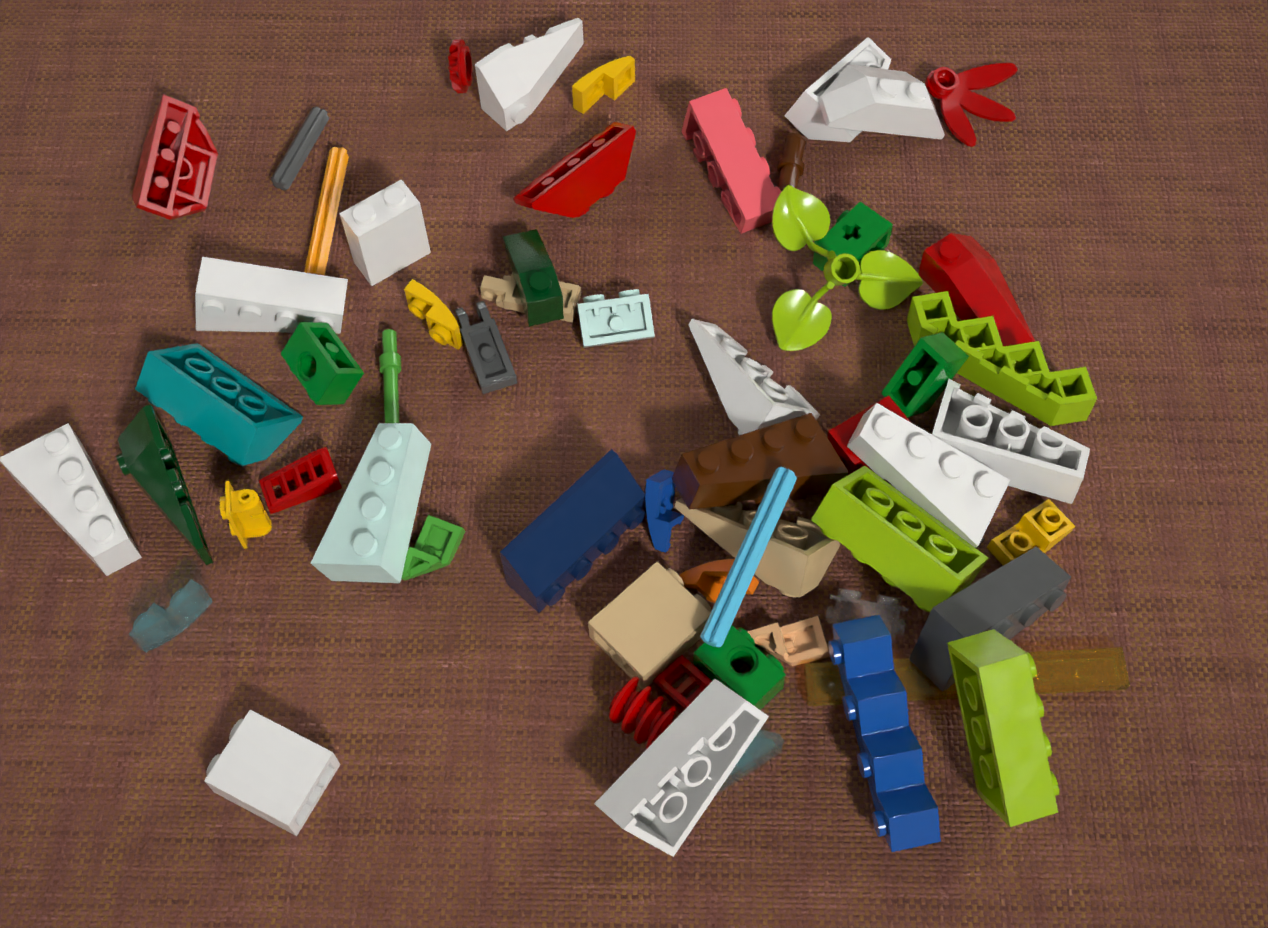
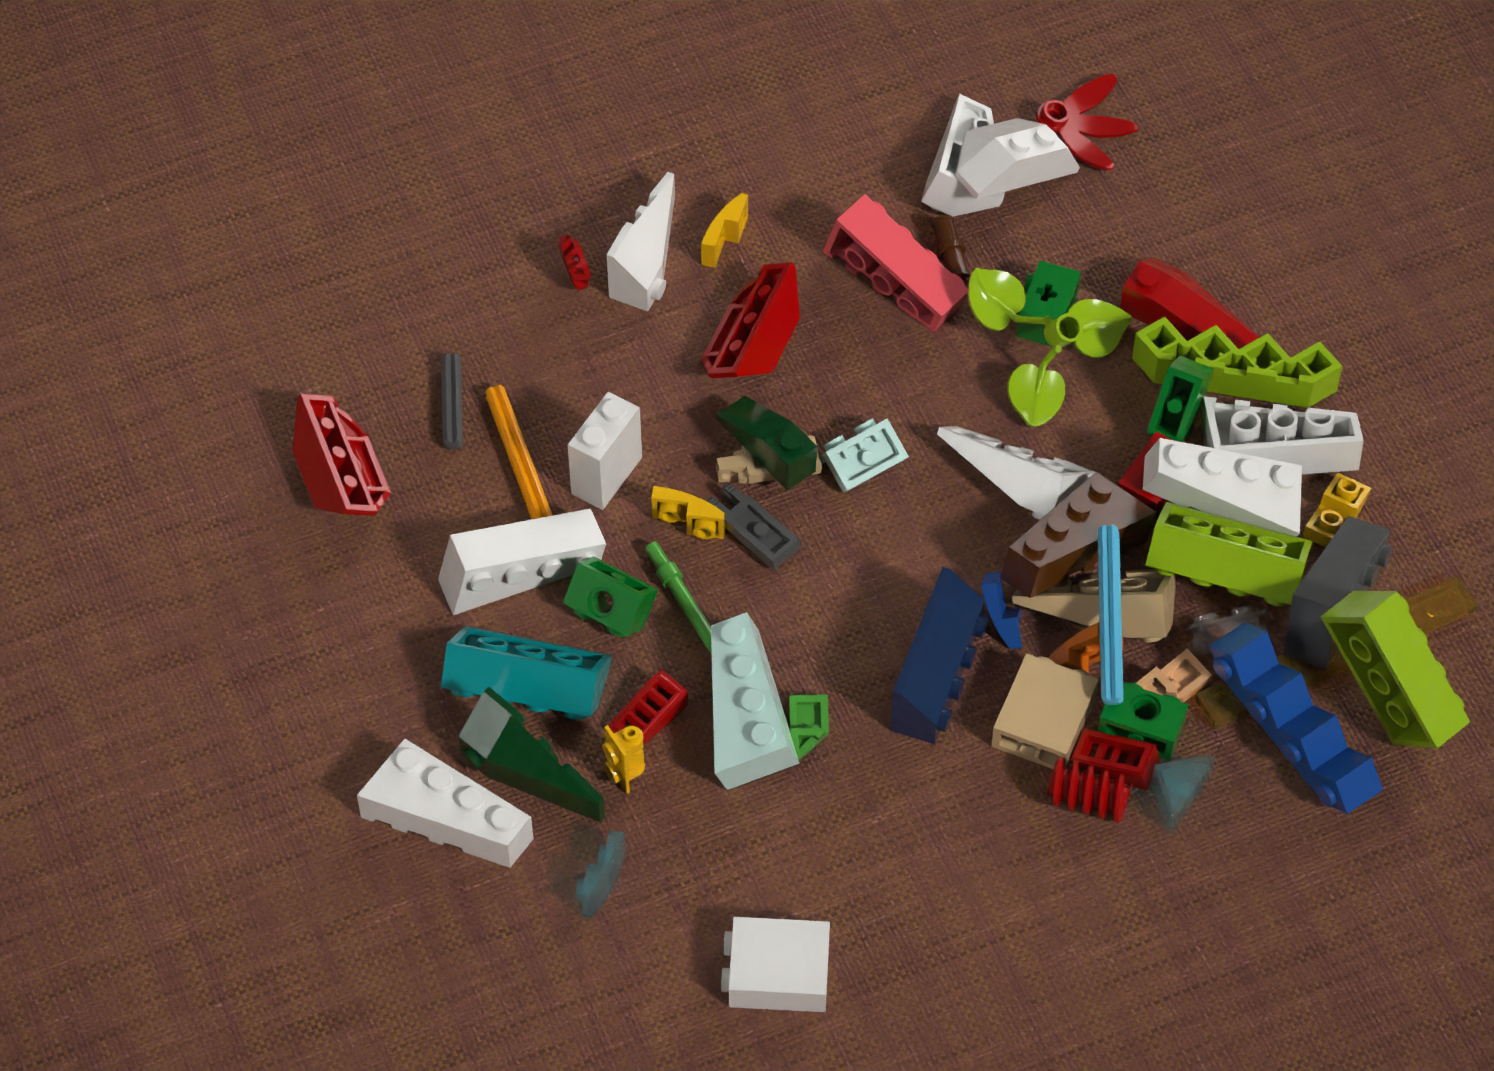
camera: 25 degrees left, 5 degrees down
(683, 768) = (1146, 809): white wedge -> none

